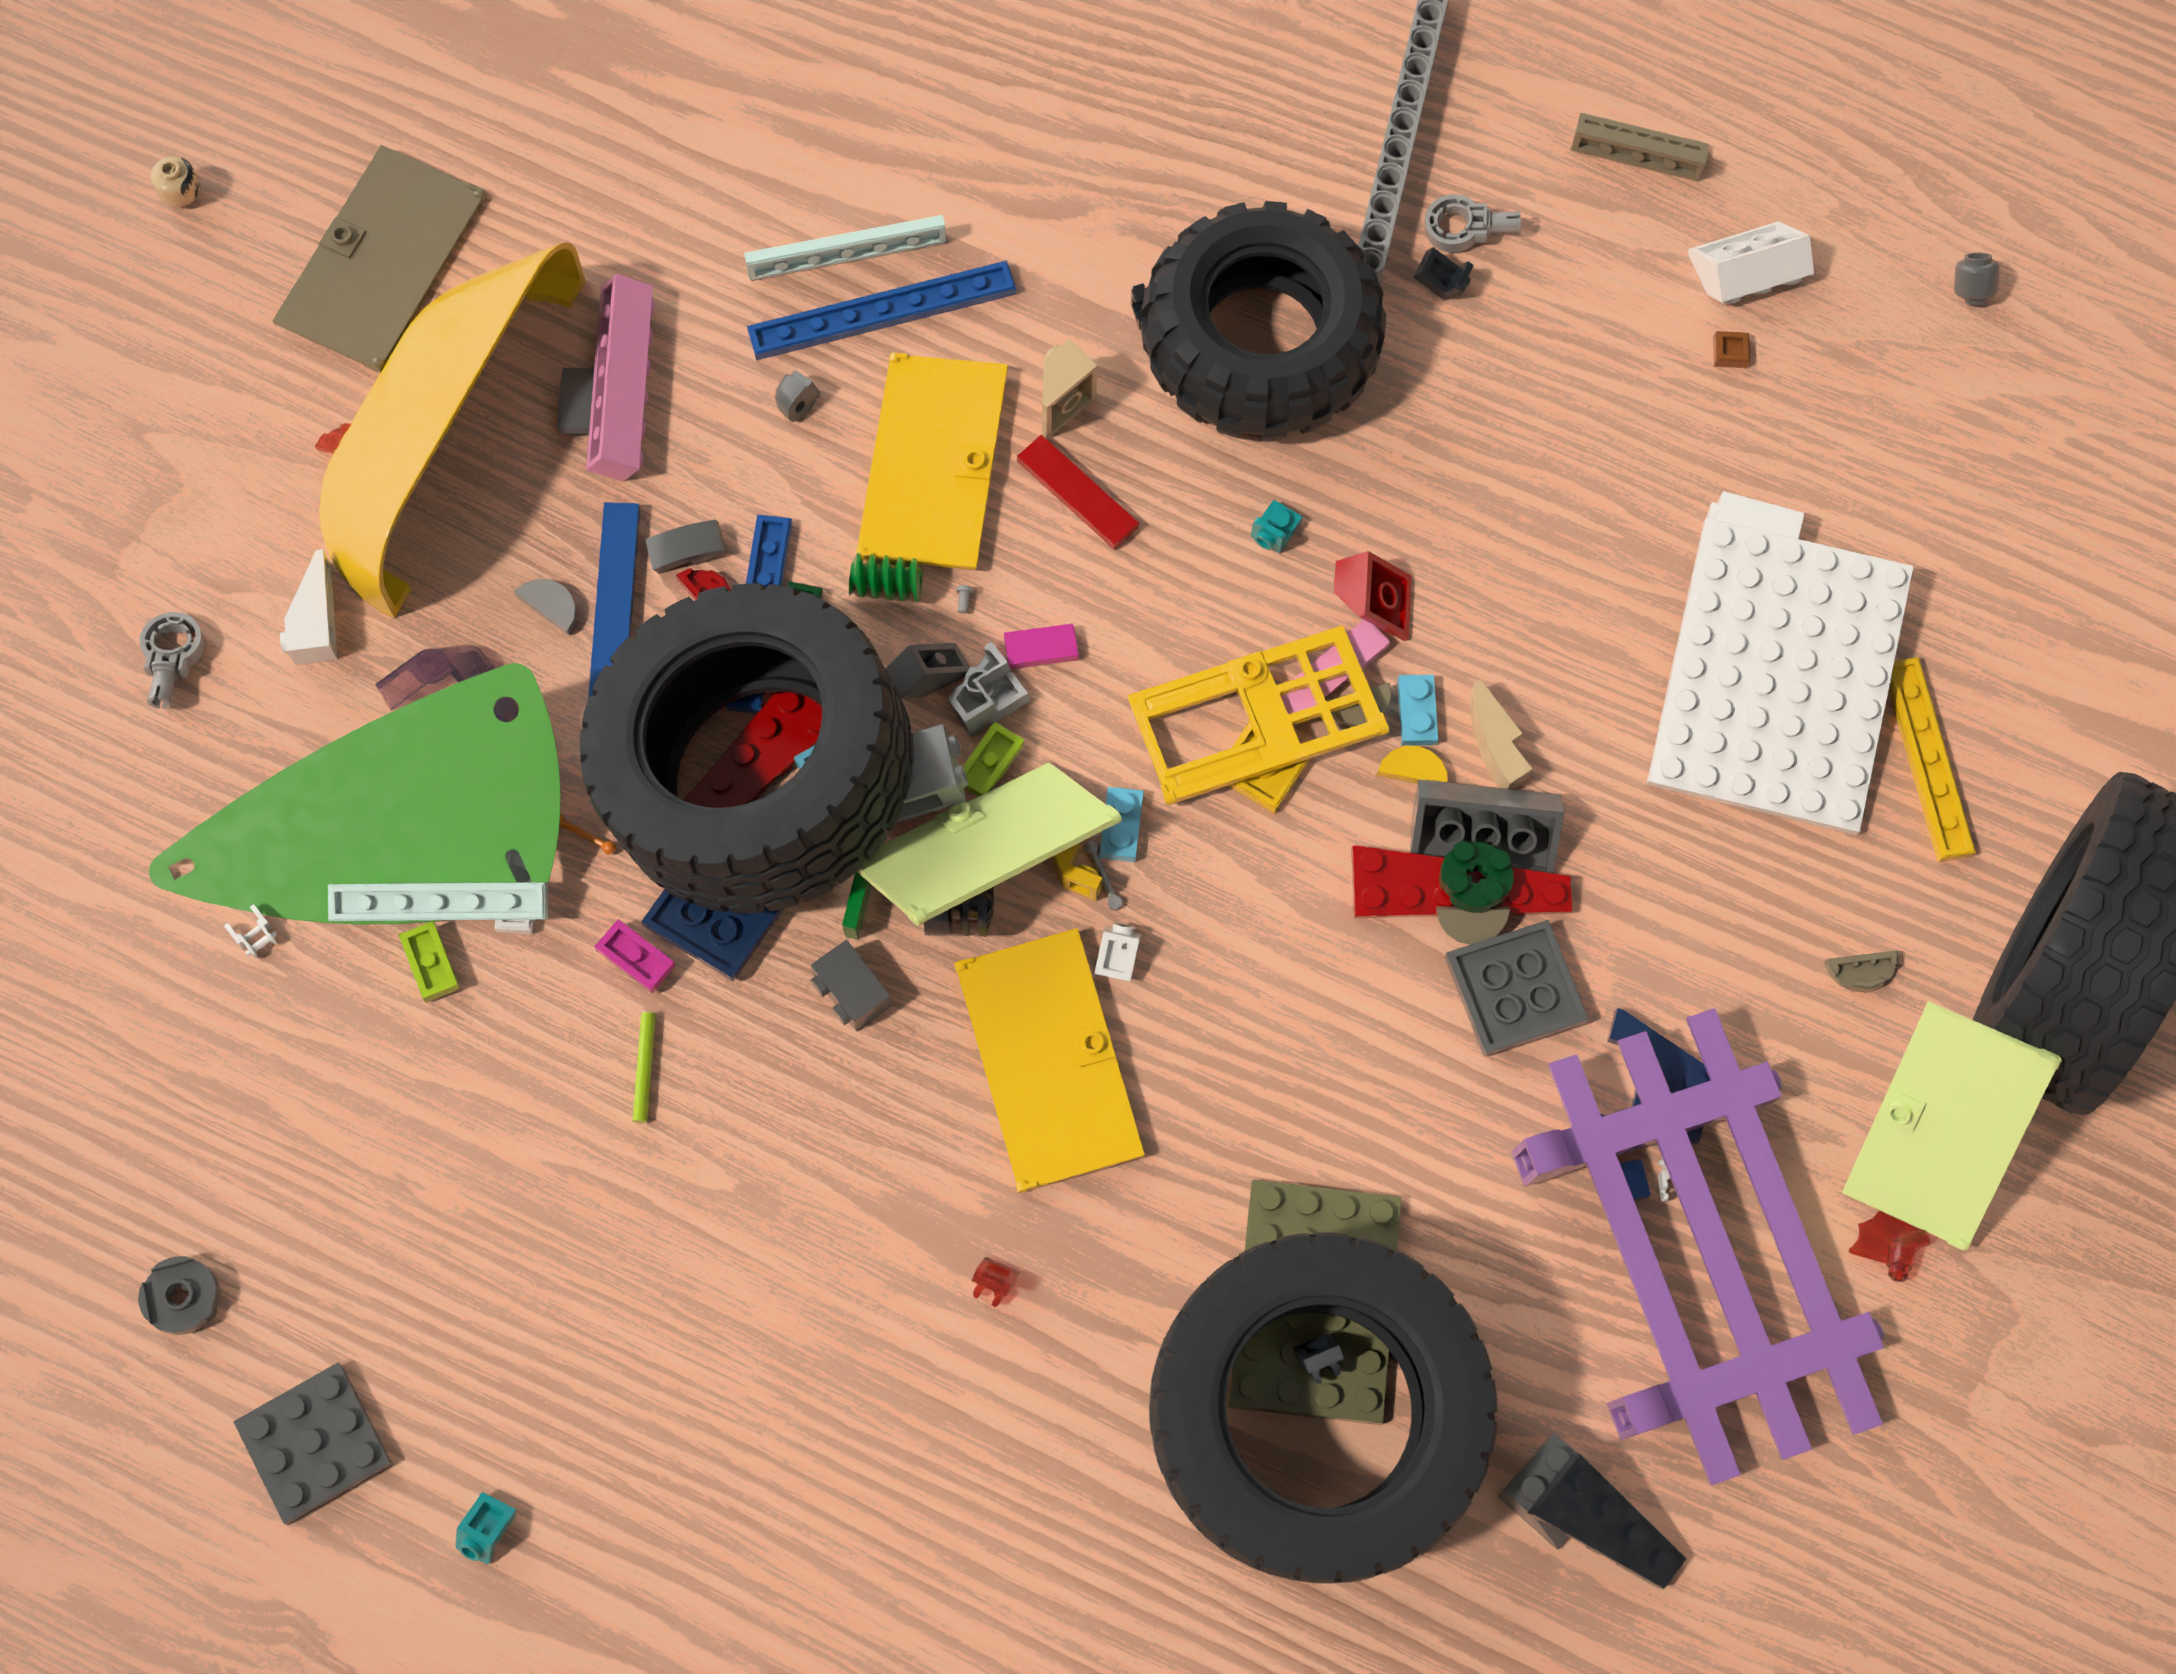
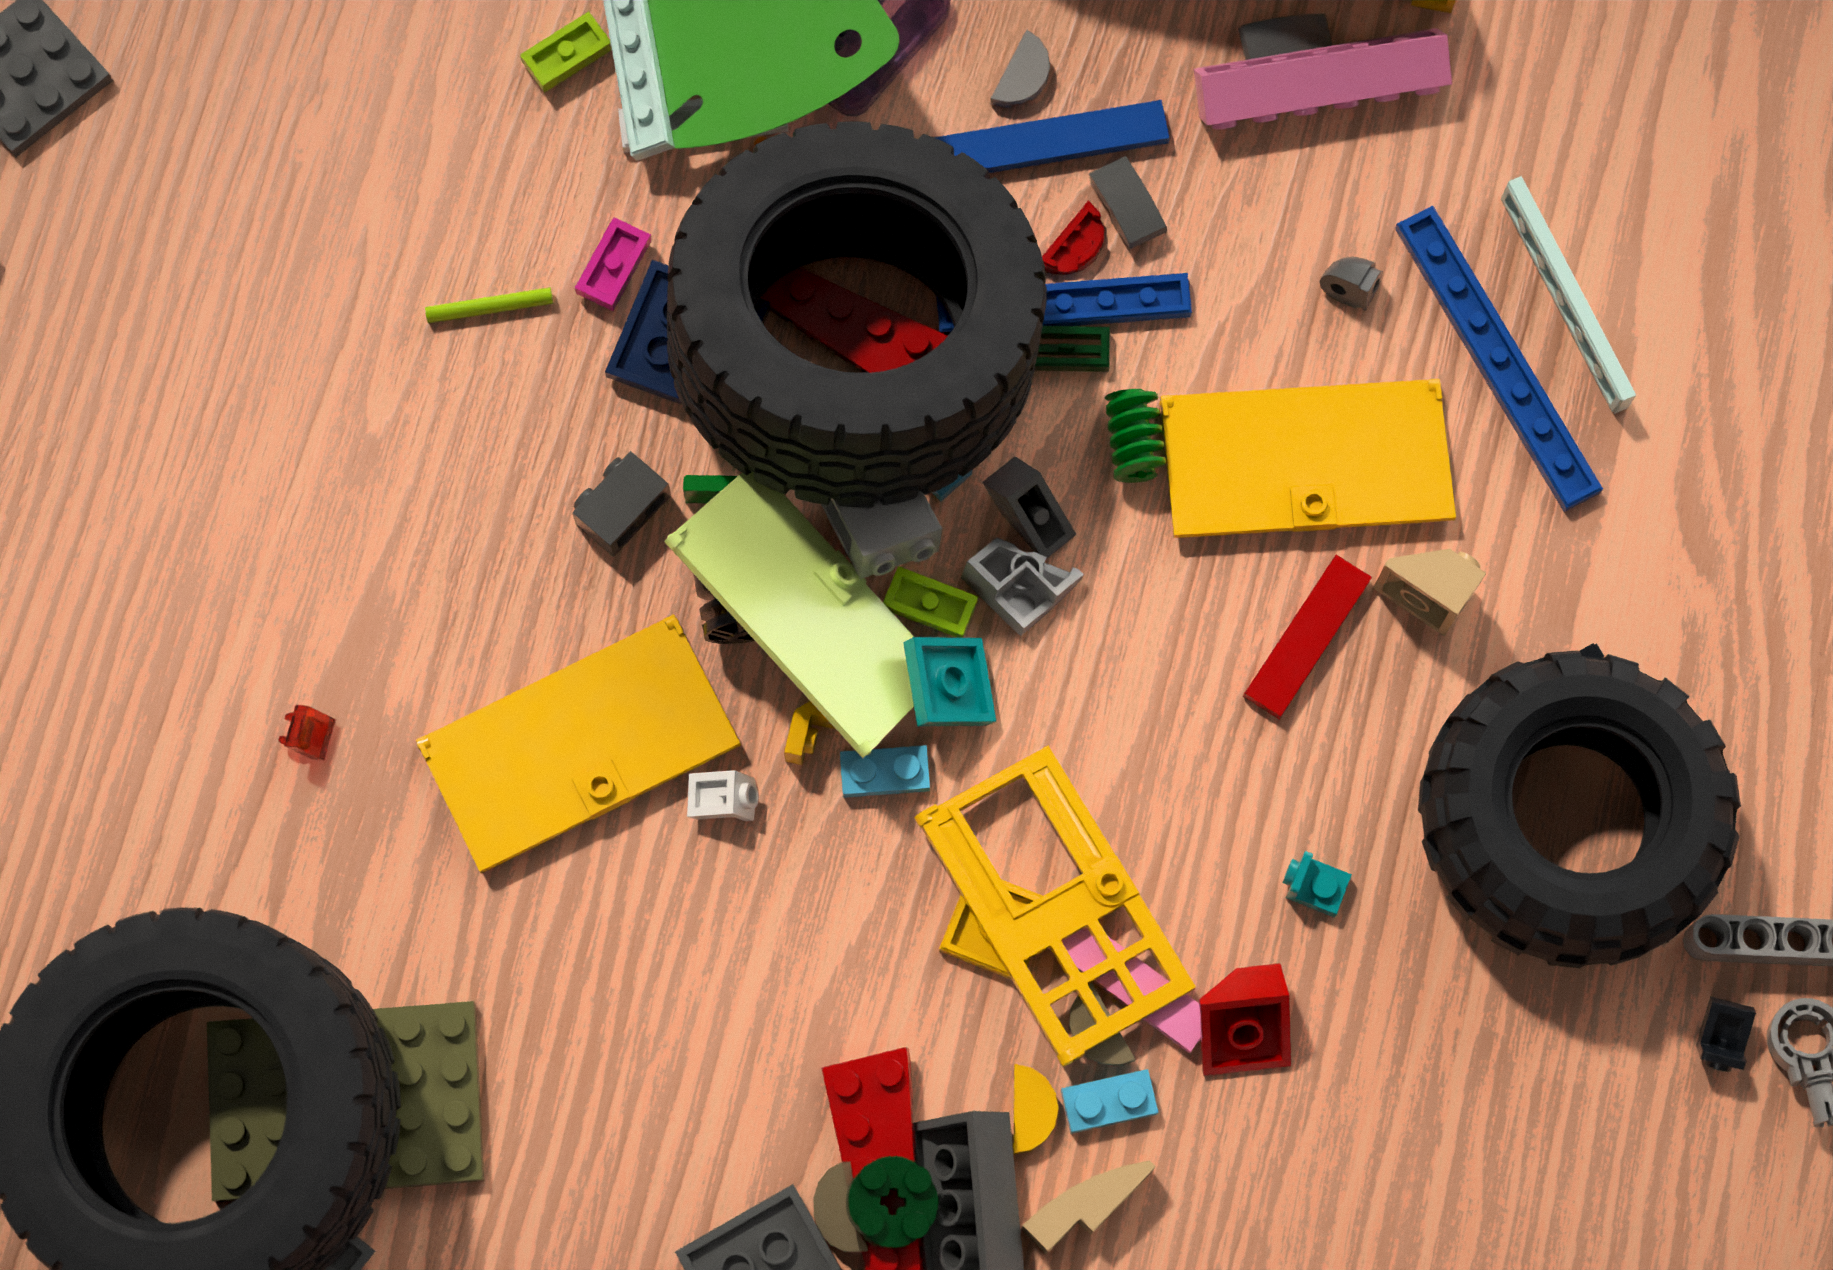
camera: 80 degrees right, 5 degrees up
(964, 594) = (1135, 532): light grey piece -> none
(1041, 646) = (1092, 633): dark pink tile -> none
(1062, 755) = (949, 681): none -> teal plate
(1114, 901) = (787, 782): light grey hinge -> none
(1319, 1354) = (267, 1107): black tile -> none

